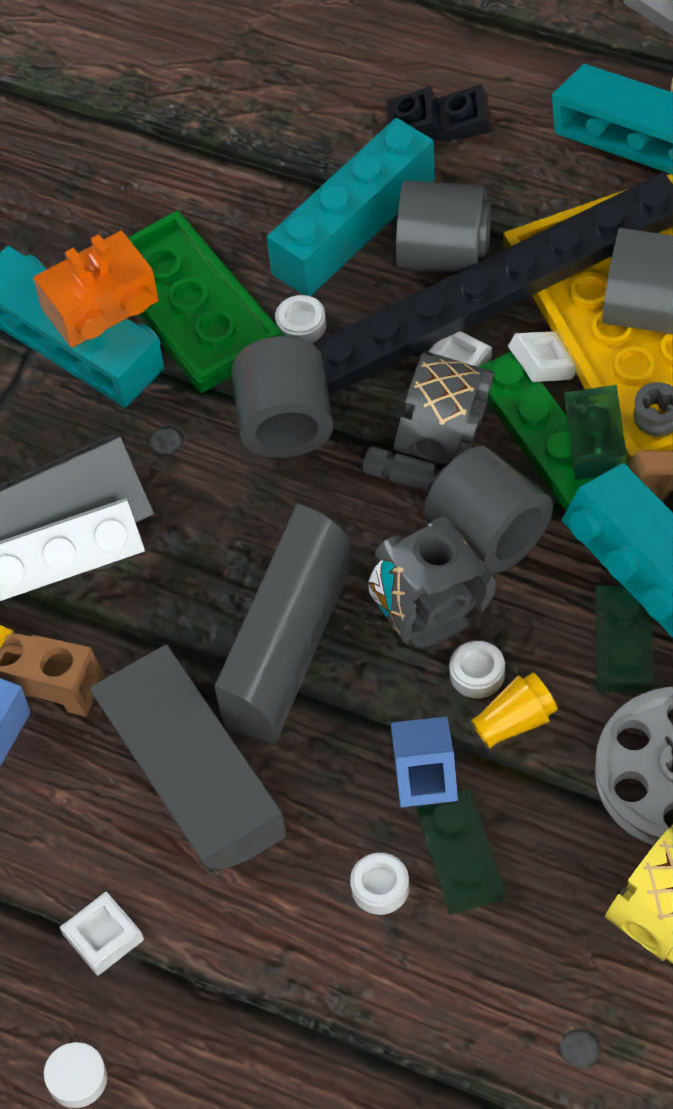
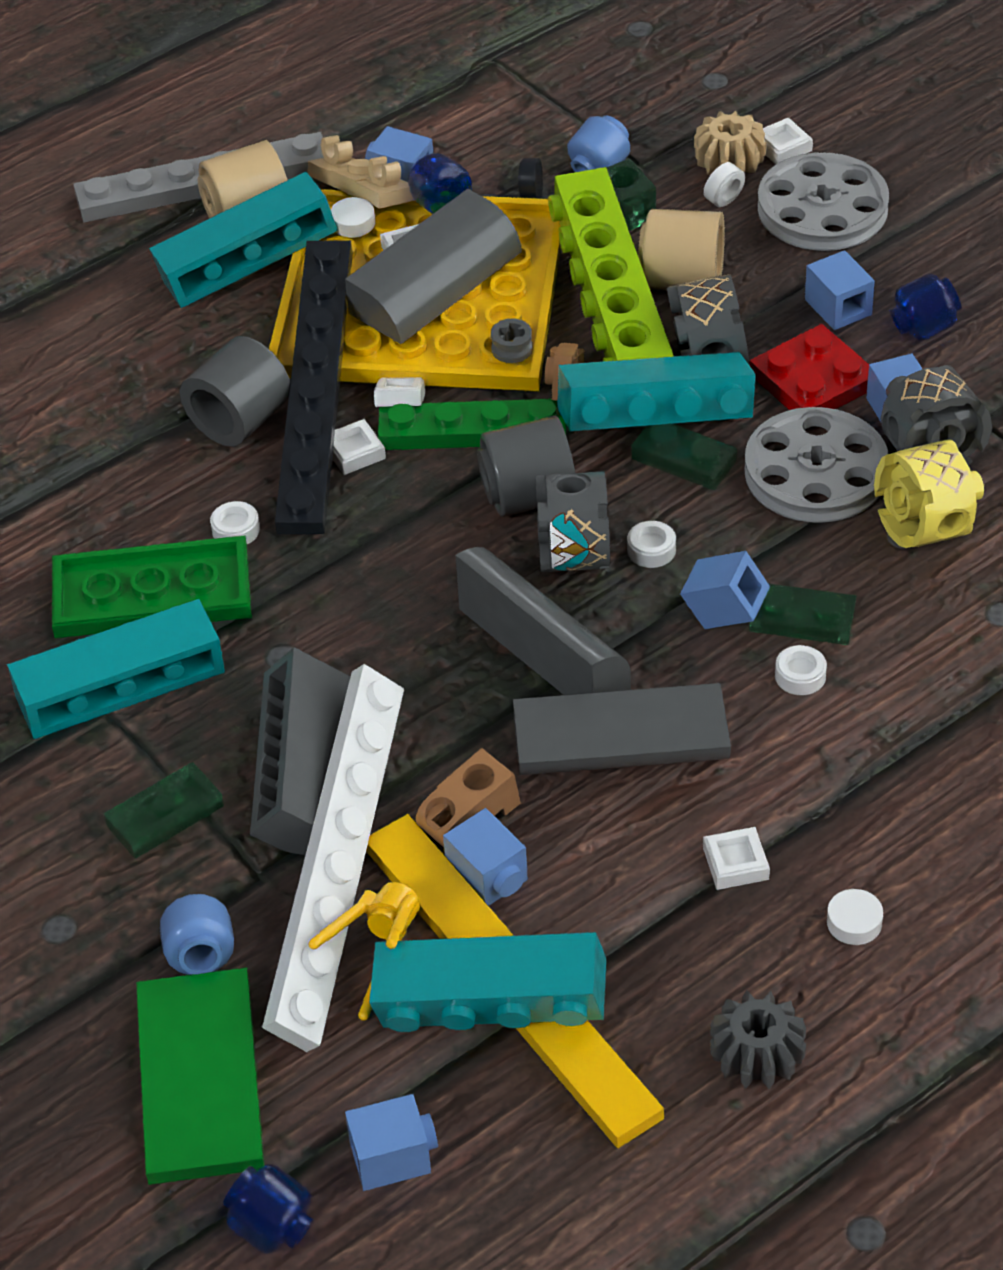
camera: 65 degrees left, 10 degrees down
(96, 288) = (127, 607): orange brick -> none
(281, 397) = (322, 545): dark grey piece -> none
(349, 208) = (159, 442): teal brick -> none
(401, 468) = (445, 509): dark grey axle -> none
(443, 408) = (415, 456): dark grey brick -> none
(446, 117) = (104, 364): black slope -> none
(515, 710) = (708, 525): yellow cone -> none
(595, 431) = (509, 377): clear green plate -> none

